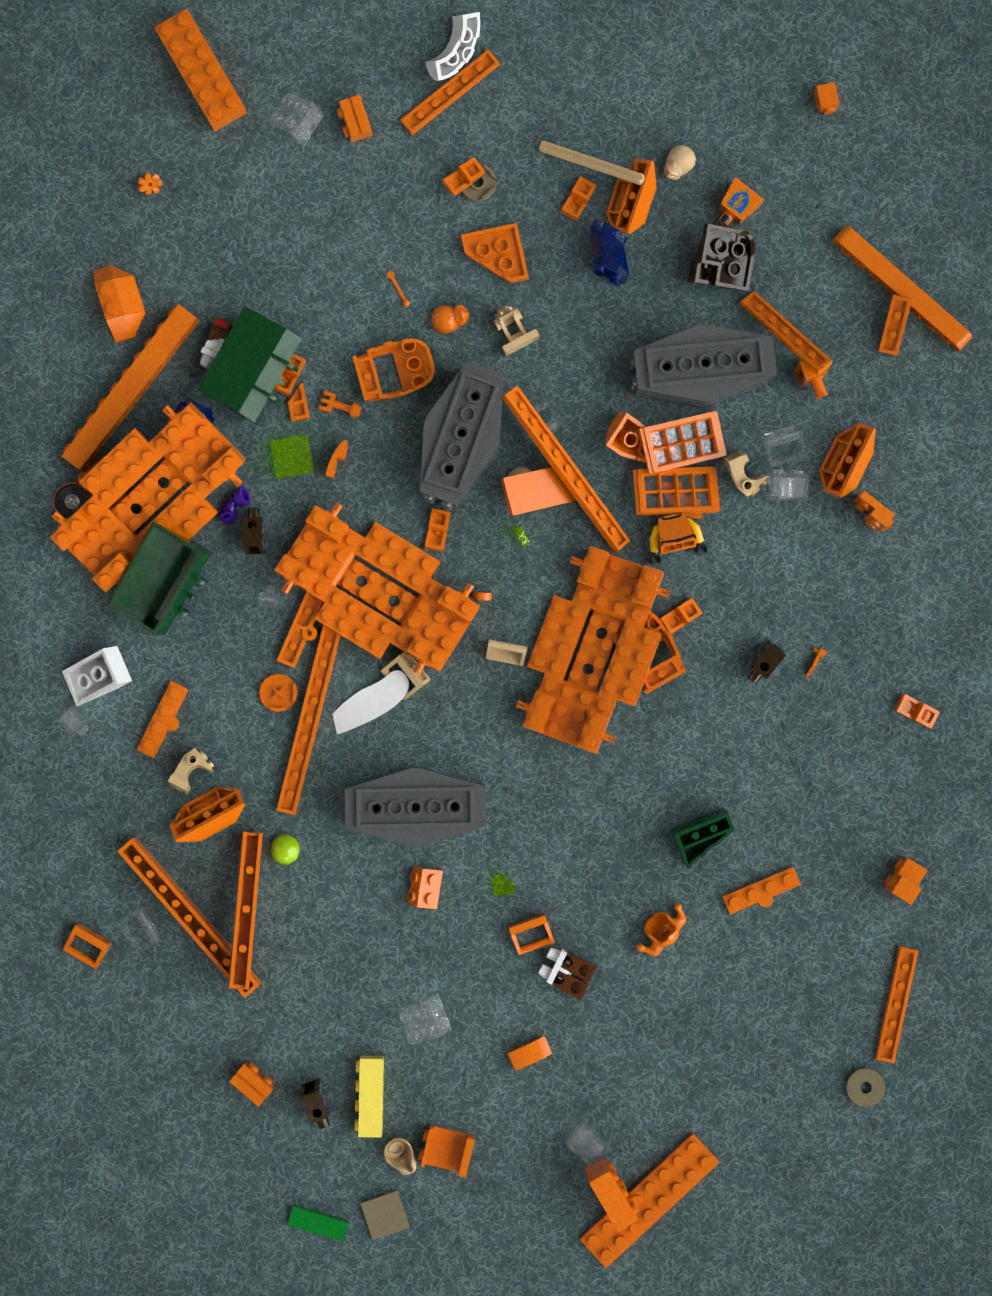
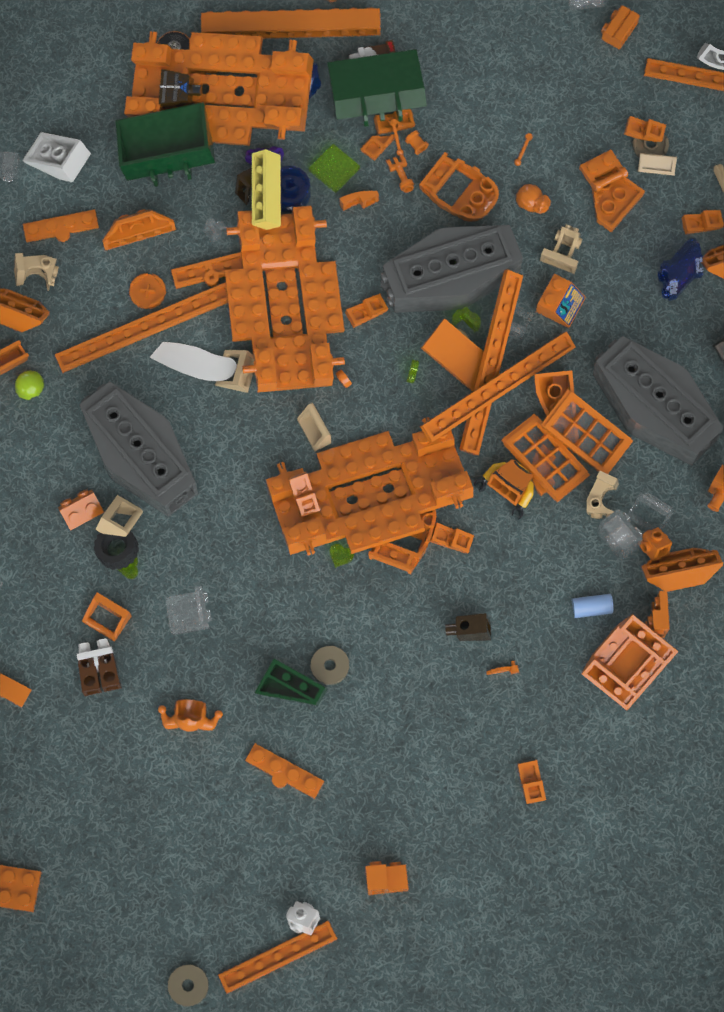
camera: 60 degrees right, 15 degrees down
(123, 533) = (177, 89): none -> dark brown torso
(215, 659) = (136, 228): none -> orange wedge
(272, 506) = (294, 188): none -> clear blue wheel
(275, 532) = (266, 190): none -> light yellow brick
(290, 376) = (393, 122): none -> orange hinge
(323, 371) = (416, 142): none -> orange bush
(460, 882) = (119, 506): none -> tan tile
(467, 242) = (600, 166): none -> orange plate
(495, 880) = (121, 560): none -> black tyre
(500, 192) = (657, 164): none -> tan tile
(513, 453) = (468, 317): none -> clear neon green bracket
(555, 370) = (560, 301): none -> orange slope
(560, 707) = (304, 494): none -> orange slope
(578, 867) = (188, 612): none -> clear bracket
(592, 481) = (497, 387): none -> orange plate
(624, 714) = (340, 555): none -> clear neon green tile
(716, 797) = (329, 676): none -> dark tan tile
(813, 463) = (655, 544): none -> orange brick
(820, 552) = (592, 605): none -> light blue brick
(888, 564) = (628, 661): none -> orange slope
(891, 961) = (302, 918): none -> white brick

